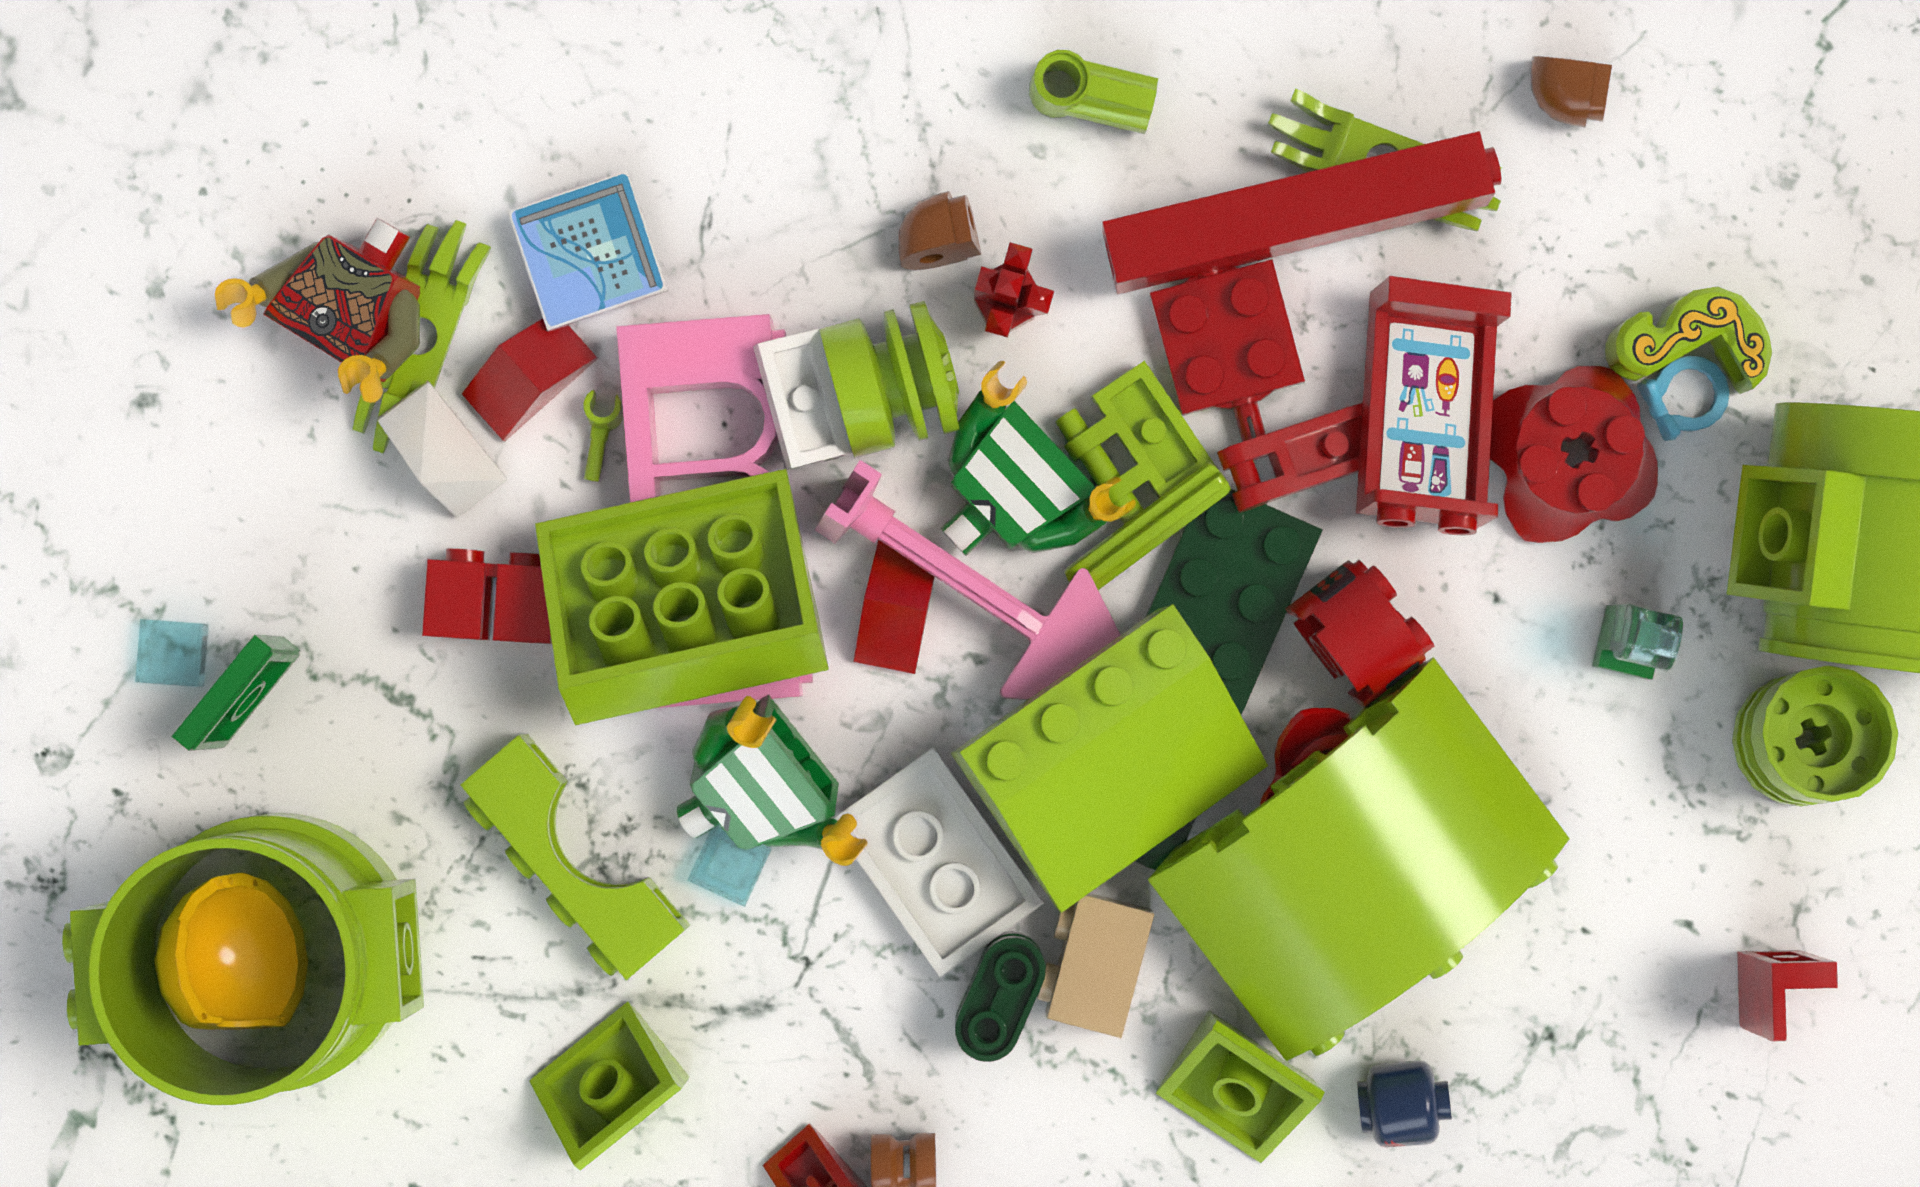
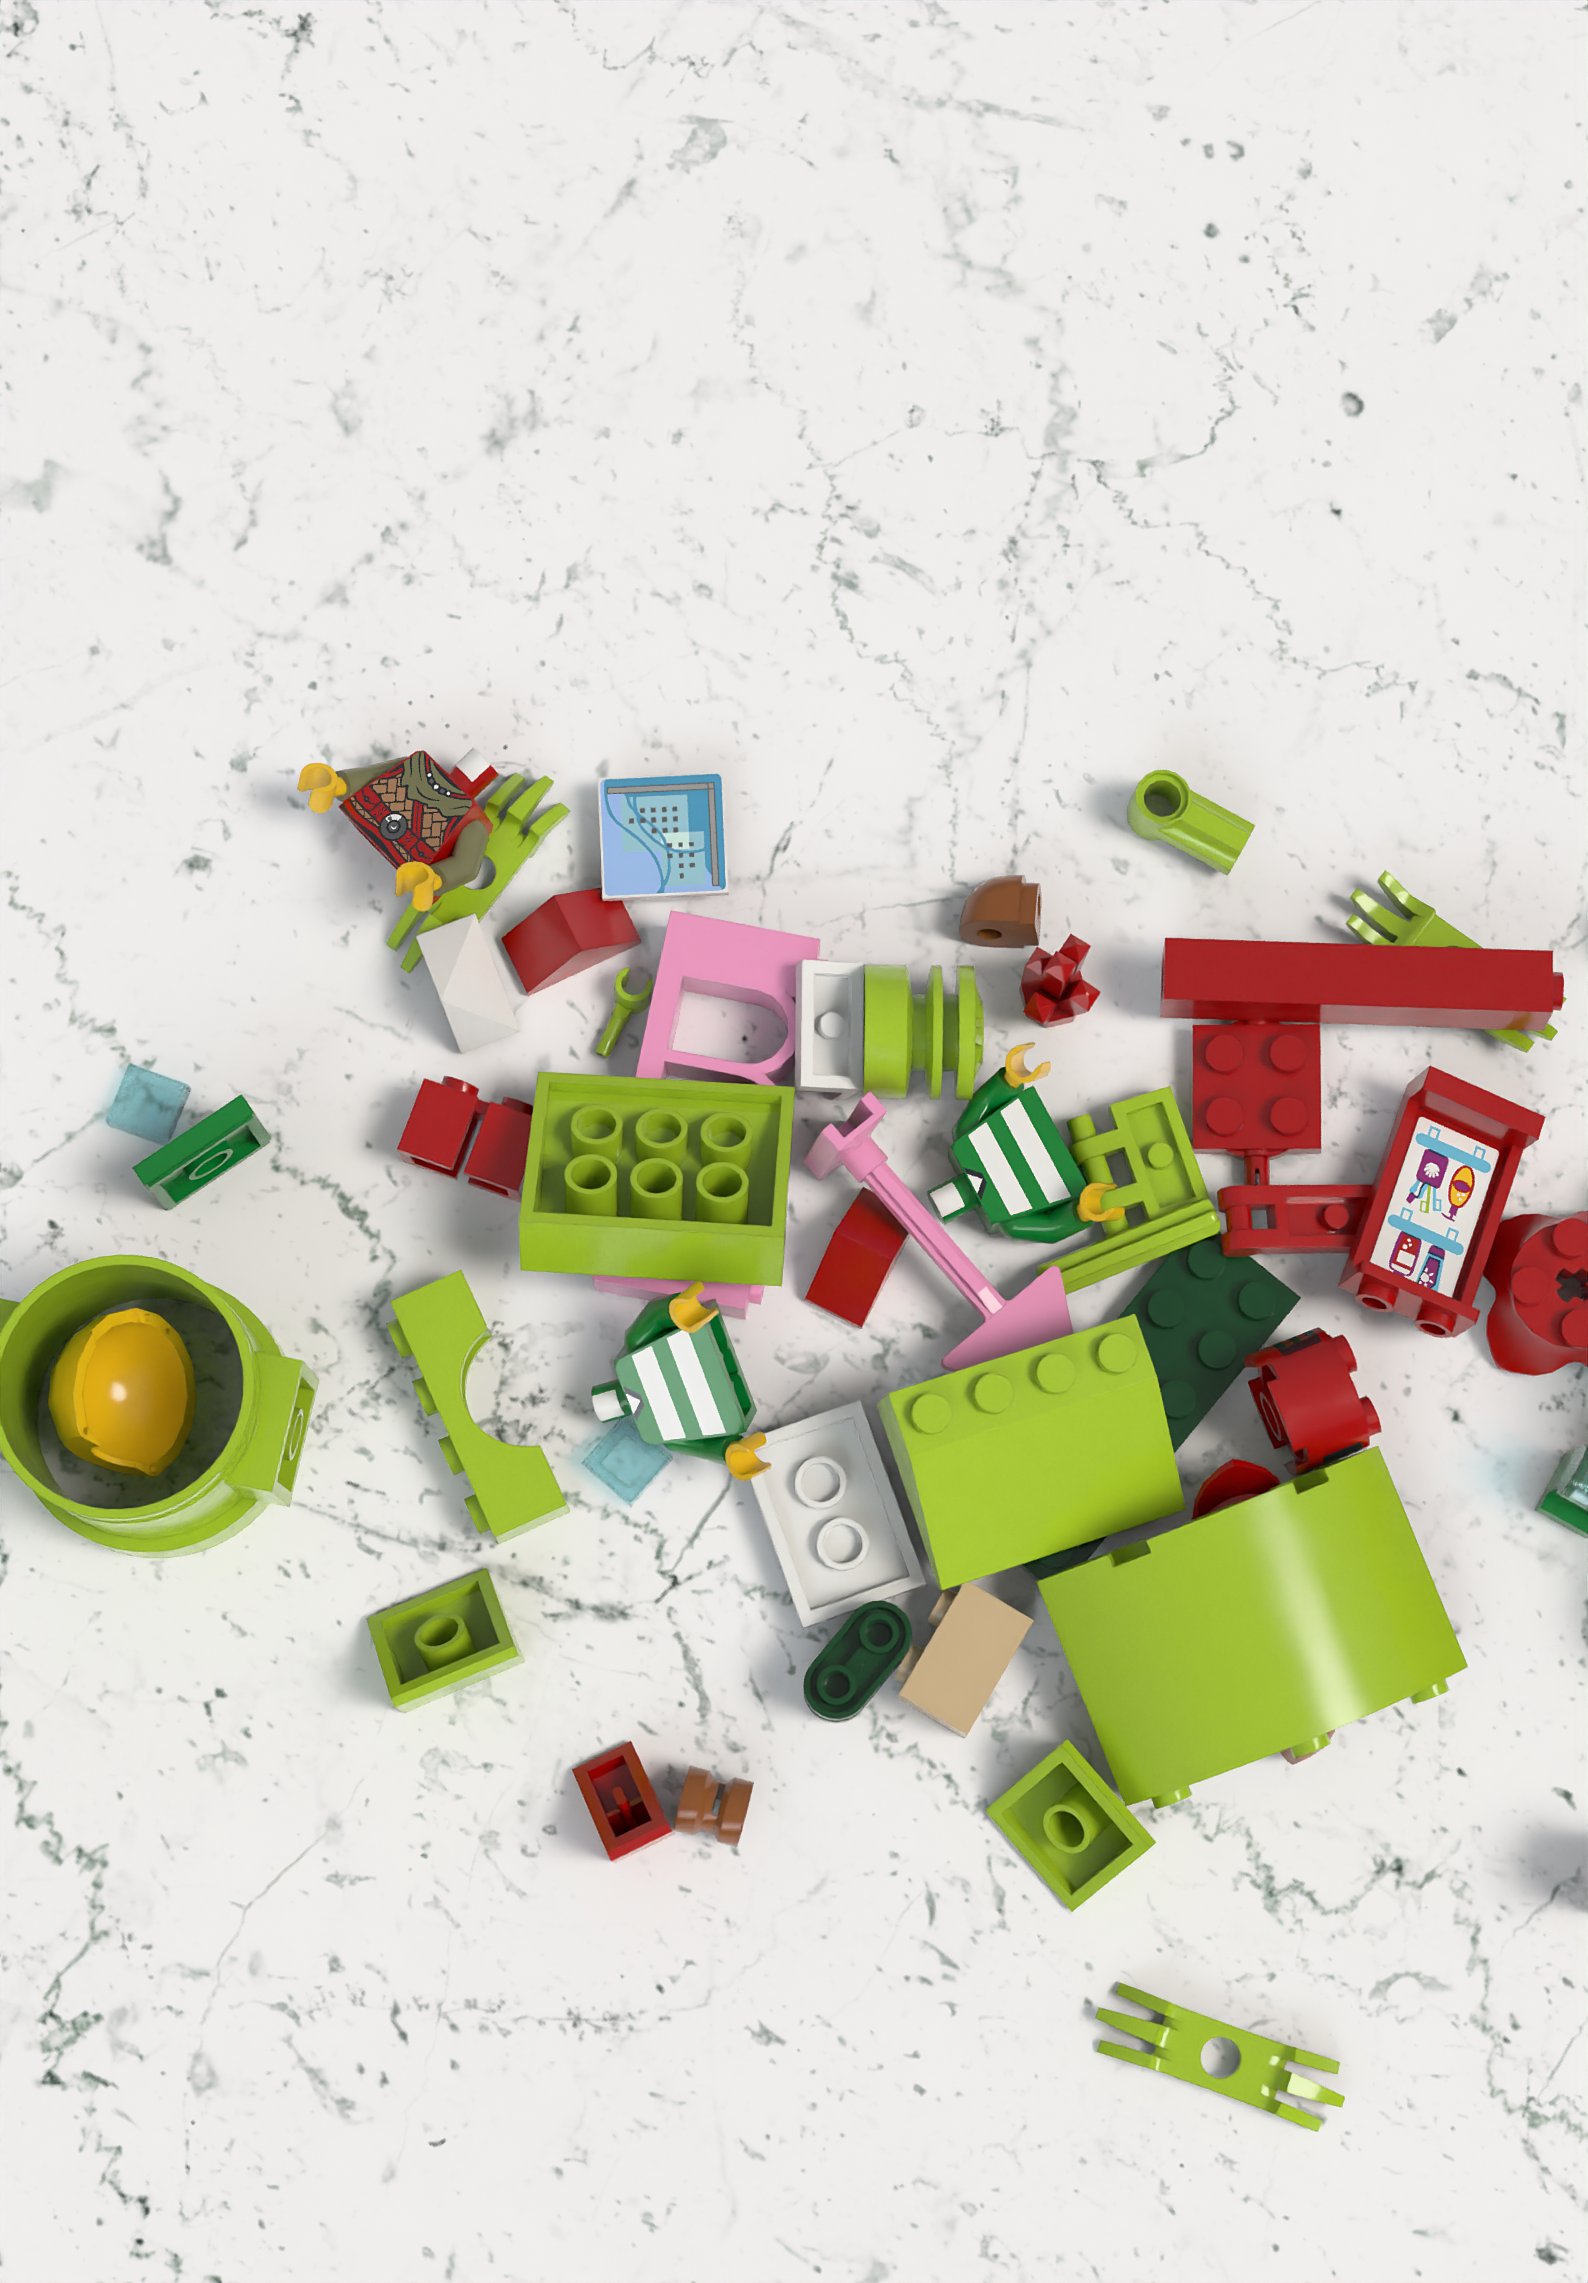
camera: 20 degrees right, 10 degrees down
(1403, 1104) = (1231, 1887): dark blue head -> none

